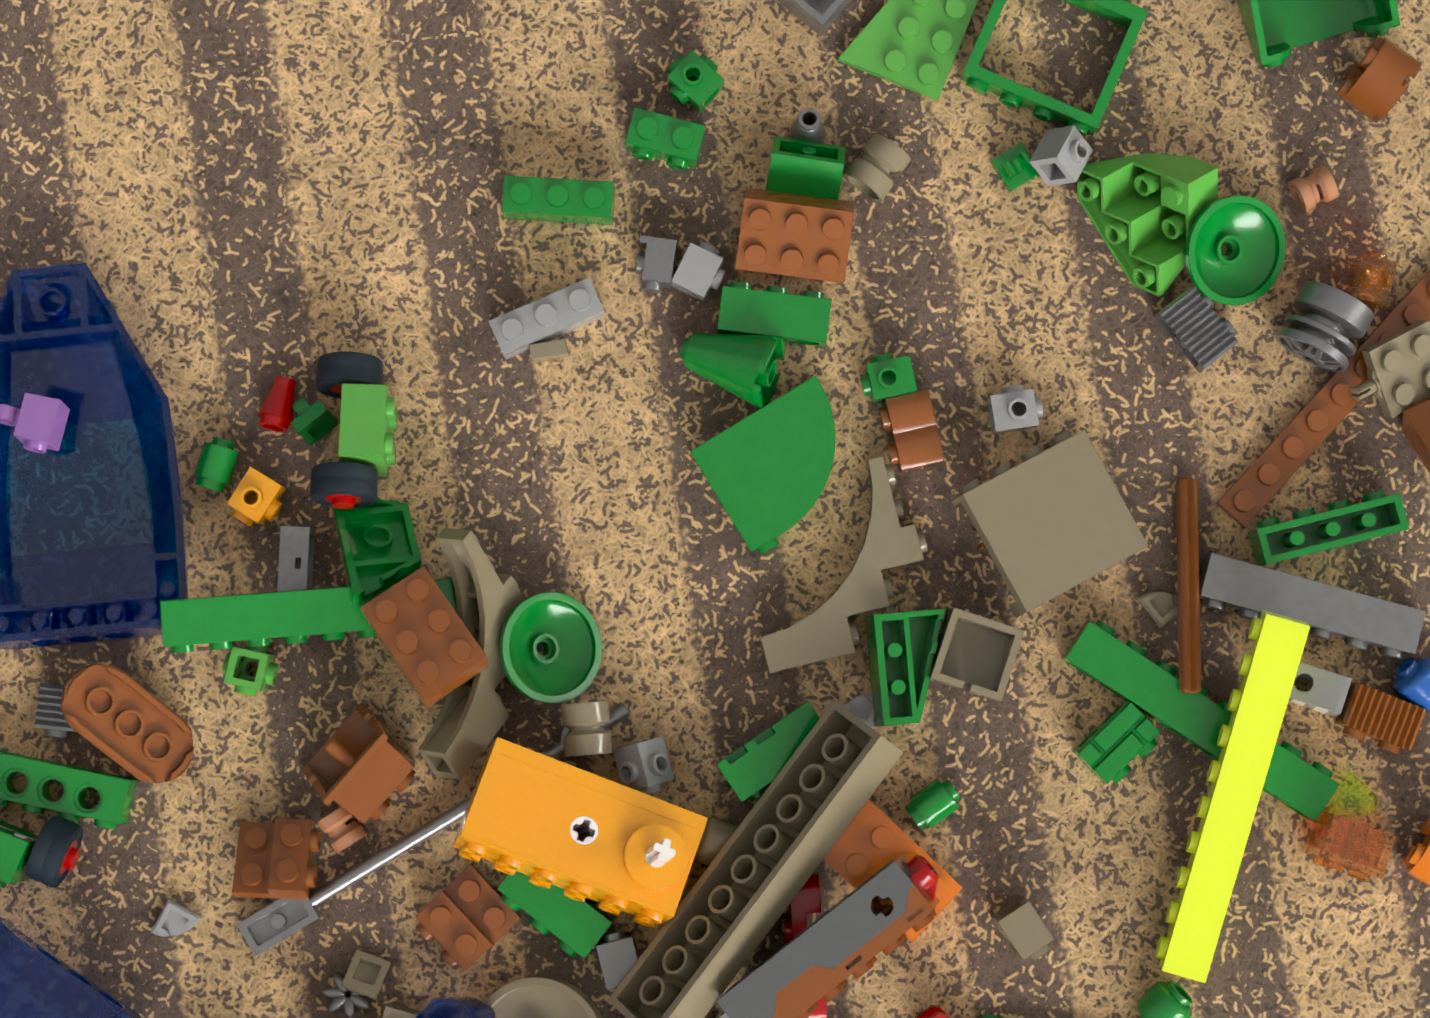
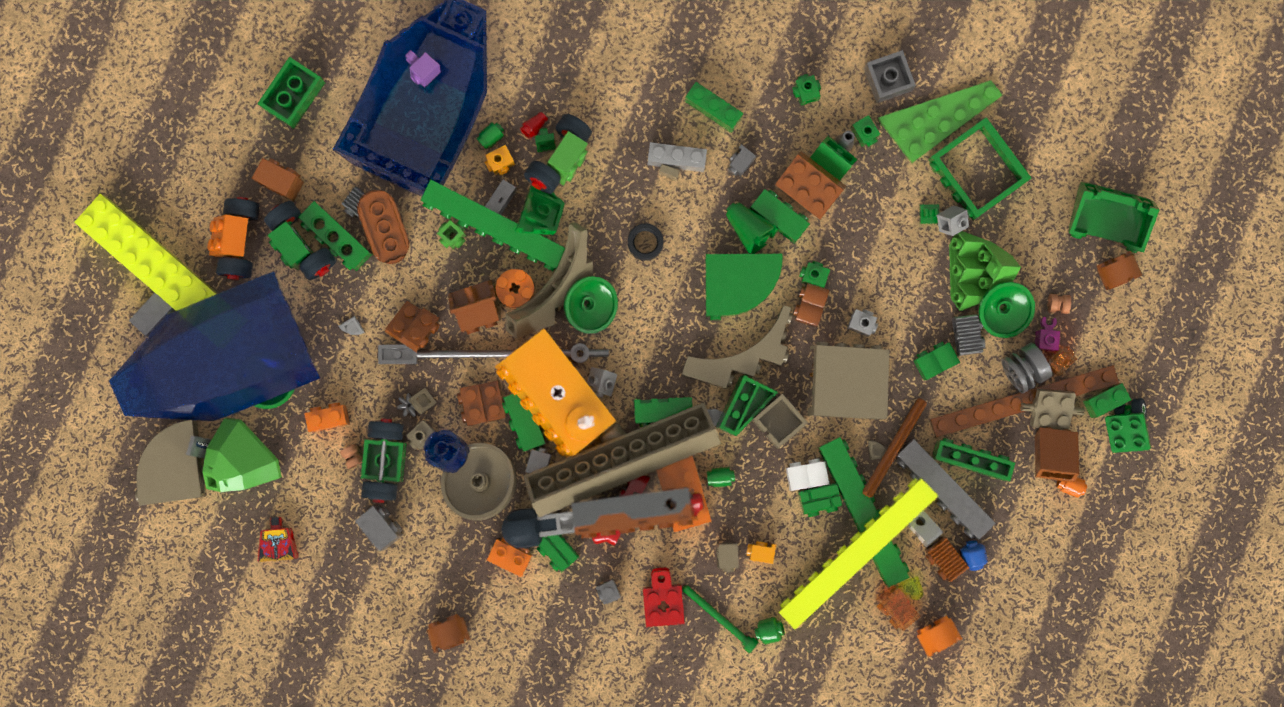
camera: 30 degrees right, 0 degrees up
(342, 829) = (450, 330): nougat wheel -> none
(390, 707) = (505, 284): none -> orange brick
(424, 636) = (538, 265): dark orange brick -> none
(571, 462) = (635, 231): none -> black tyre
(586, 728) = (586, 348): dark tan wheel -> none
(665, 139) = (778, 108): green brick -> none
(699, 271) = (758, 176): light grey brick -> none
(831, 93) = (865, 131): none -> green brick
(879, 164) = (867, 176): dark tan wheel -> none
(1072, 716) = (807, 475): none -> white brick
(1074, 887) = (761, 552): none -> light orange brick
(1170, 402) = (936, 361): none -> green brick
(1327, 258) = (1046, 338): none -> magenta brick

